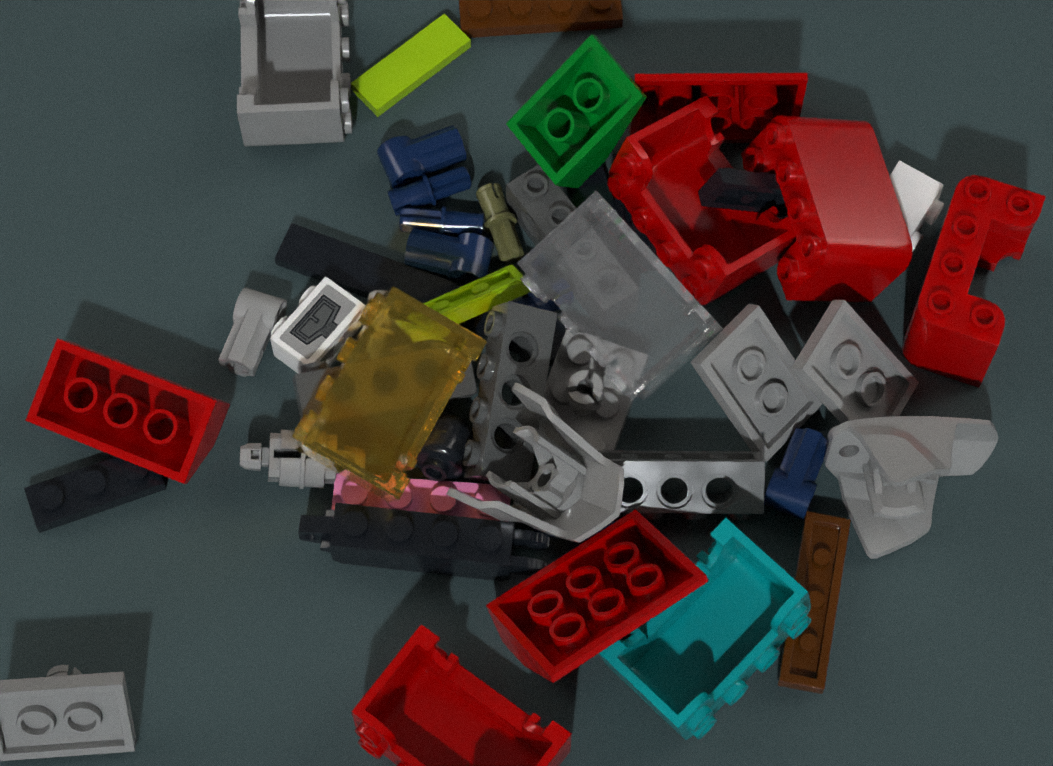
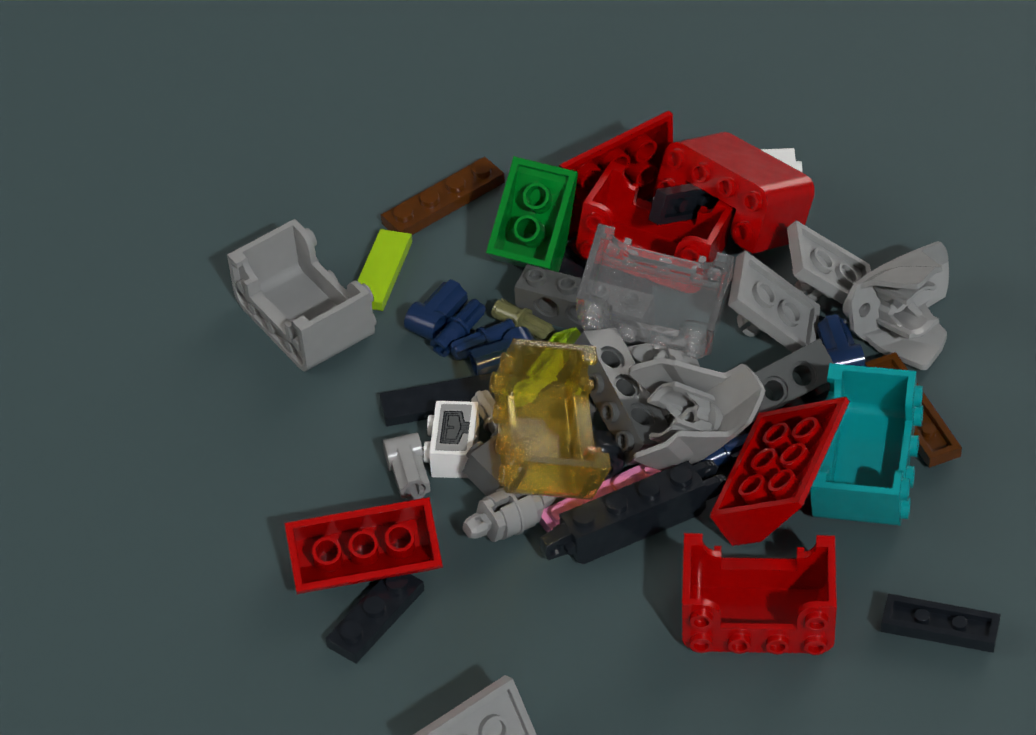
camera: 30 degrees left, 20 degrees down
(949, 327) = (860, 211): red windscreen -> none

